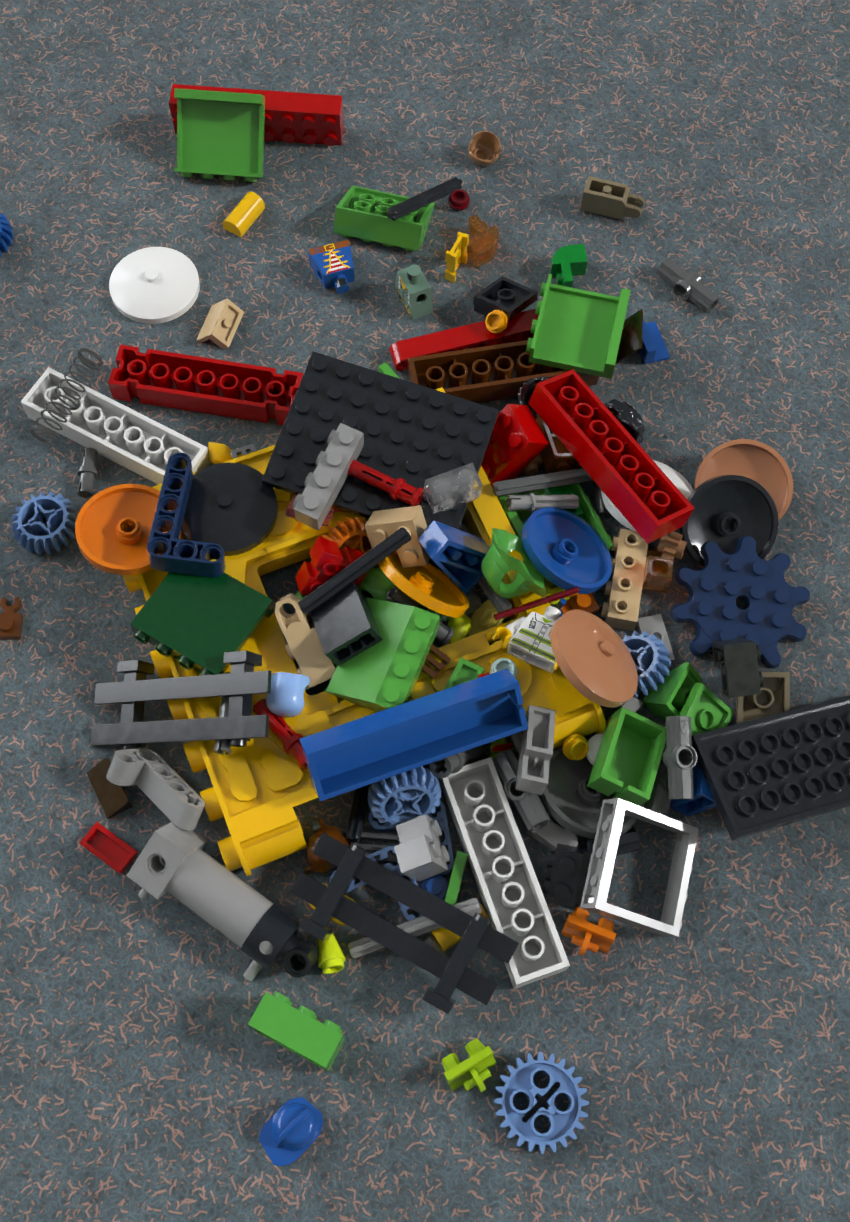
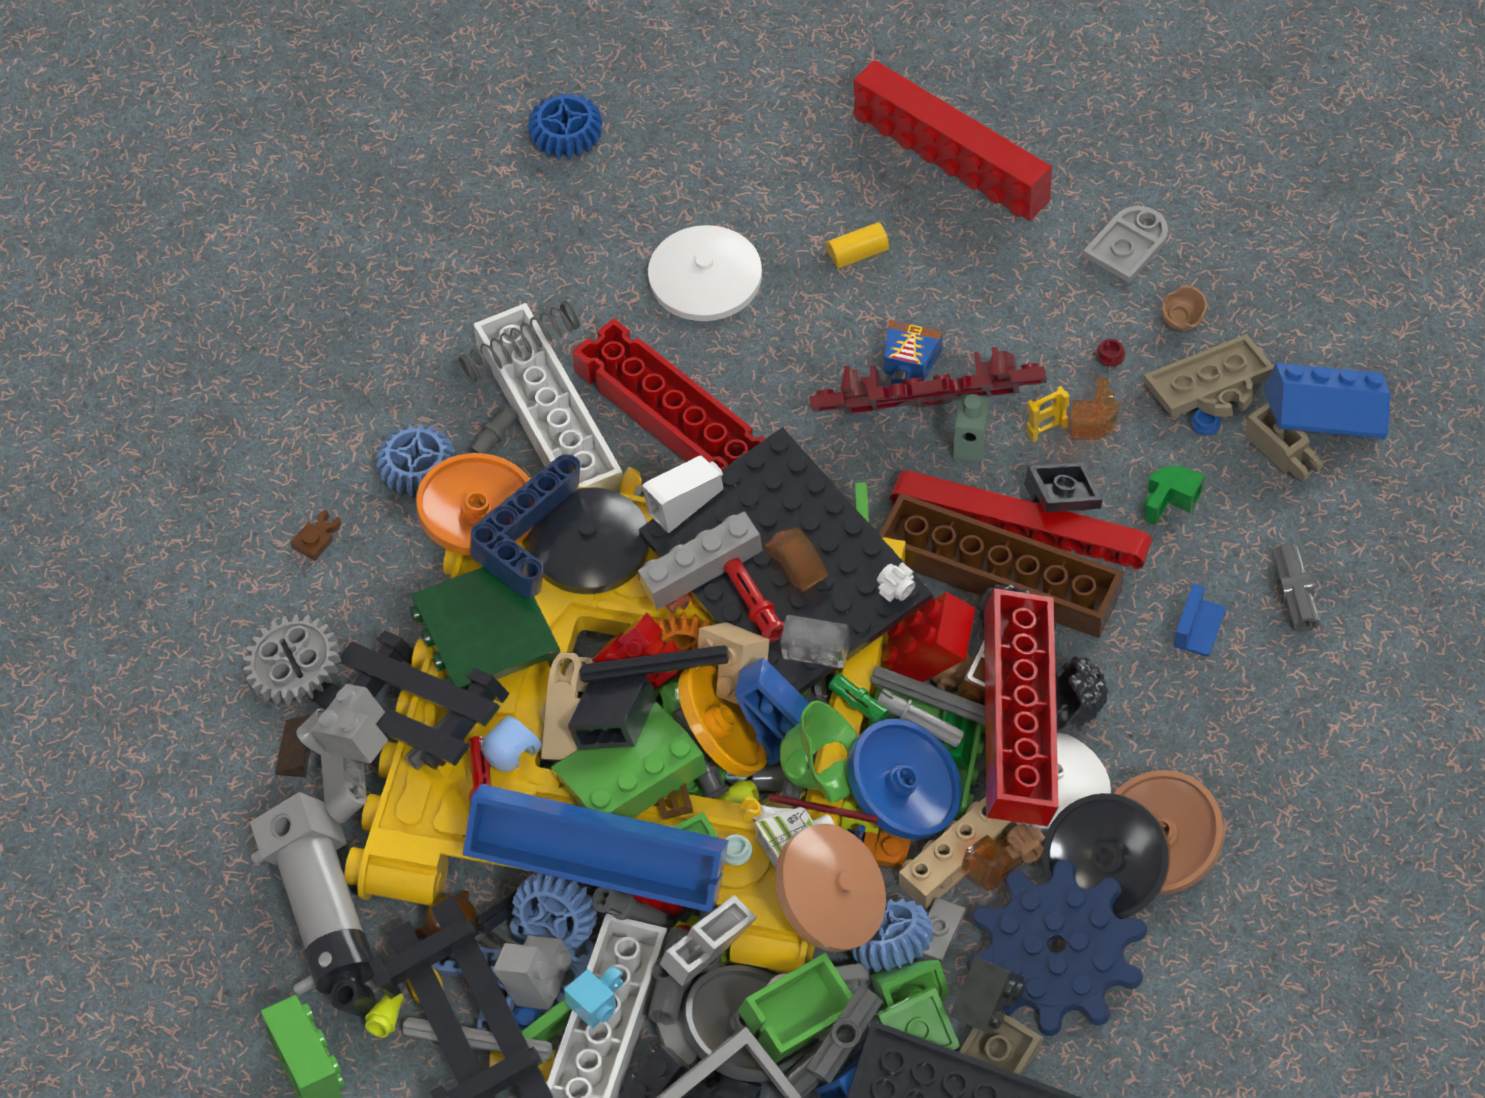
camera: 40 degrees right, 10 degrees down
(46, 746) = (314, 655): none -> light grey gear
(108, 848) = (254, 794): red tile -> none
(153, 753) = (350, 725): none -> light grey brick
(220, 134) = (889, 143): bright green panel -> none
(221, 323) = (742, 352): tan panel -> none
(281, 434) = (682, 491): none -> white slope
(325, 308) = (991, 379): none -> dark red piece
(364, 216) = (1006, 317): bright green slope -> none
(399, 434) = (797, 557): none -> clear orange brick
(413, 129) = (1126, 244): none -> light grey tile
(424, 199) = (1063, 330): black axle -> none
(477, 414) = (896, 582): none -> white gear
(483, 510) = (842, 686): none -> green pin
(485, 845) = (594, 997): none -> medium azure brick
(496, 321) = (1028, 506): light orange plate -> none
(535, 183) = (1211, 379): none -> dark tan plate
(550, 212) = (1205, 423): none -> blue plate
(575, 747) = (758, 971): yellow plate -> none
(577, 329) = (1107, 560): bright green panel -> none
(621, 157) = (1329, 400): none -> blue slope
(631, 336) = (1159, 601): dark brown hinge -> none

